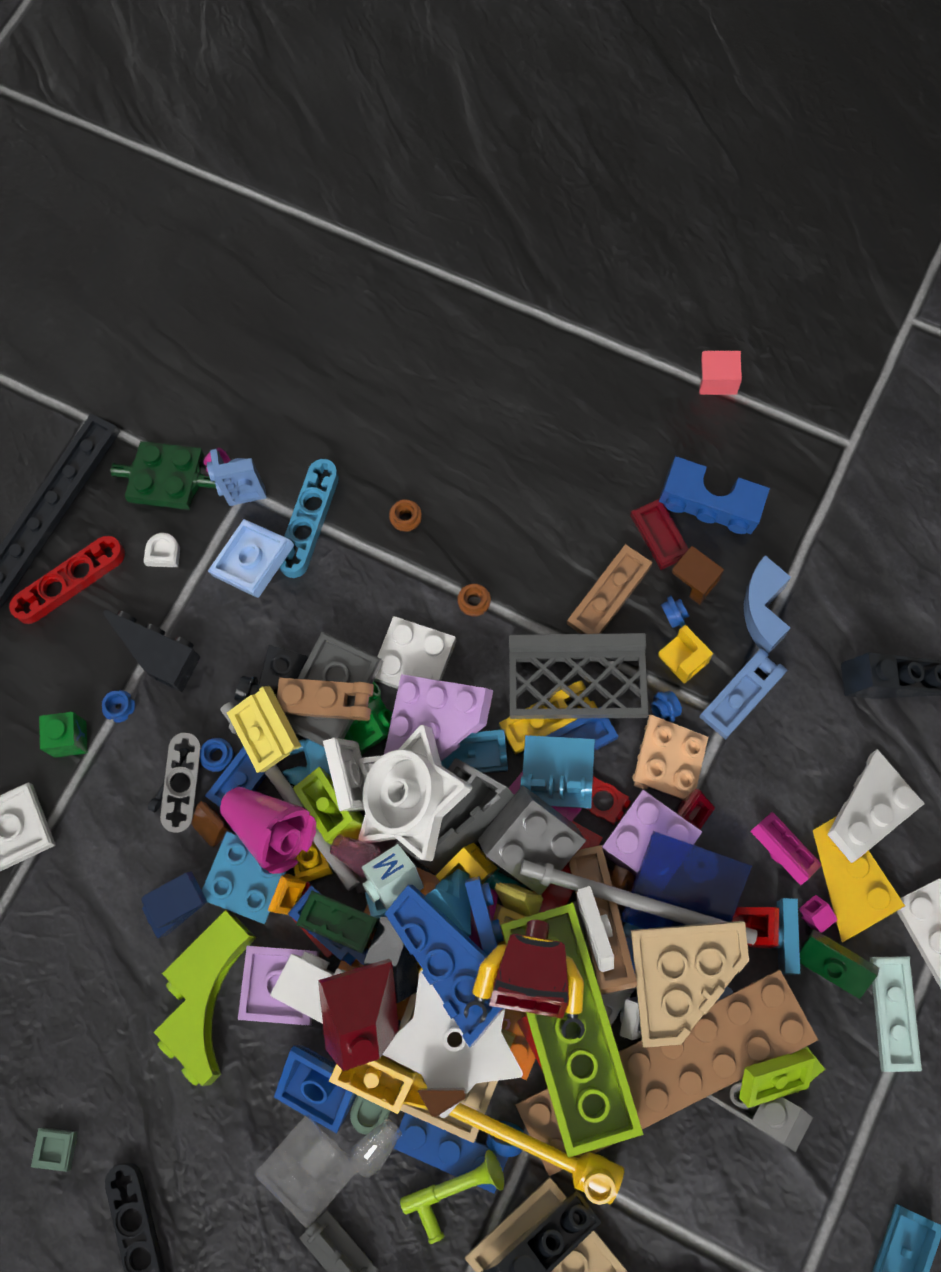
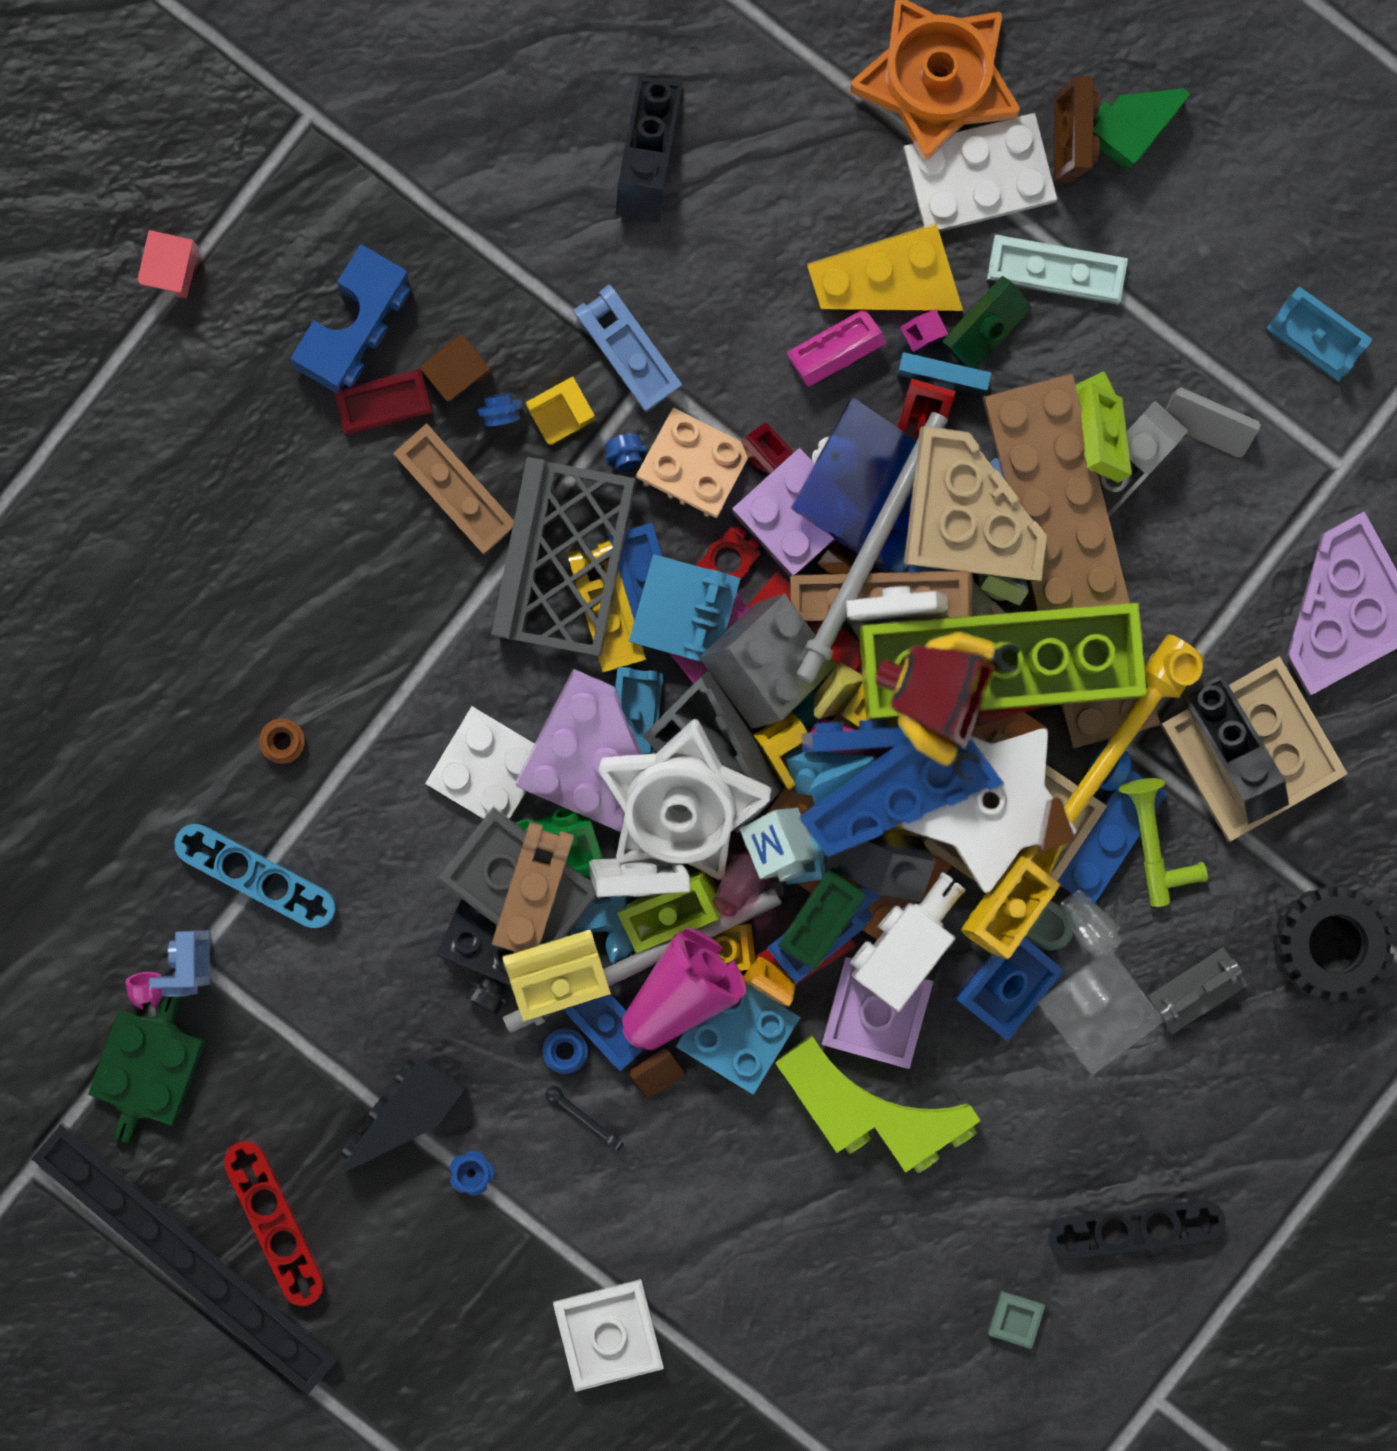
camera: 85 degrees left, 15 degrees up
(63, 734) = (498, 1248): green brick -> none
(162, 551) = (259, 1086): white tile -> none
(172, 904) = (753, 1128): dark blue slope -> none
(192, 757) = (565, 1082): light grey beam -> none
(251, 558) = (301, 962): light blue plate -> none
(359, 1013) = (942, 906): dark red slope -> none
(474, 590) = (411, 664): dark orange plate -> none
(764, 586) = (493, 289): medium blue brick -> none
(807, 1173) = (1213, 422): none -> light grey slope
(874, 808) = (811, 226): white wing -> none

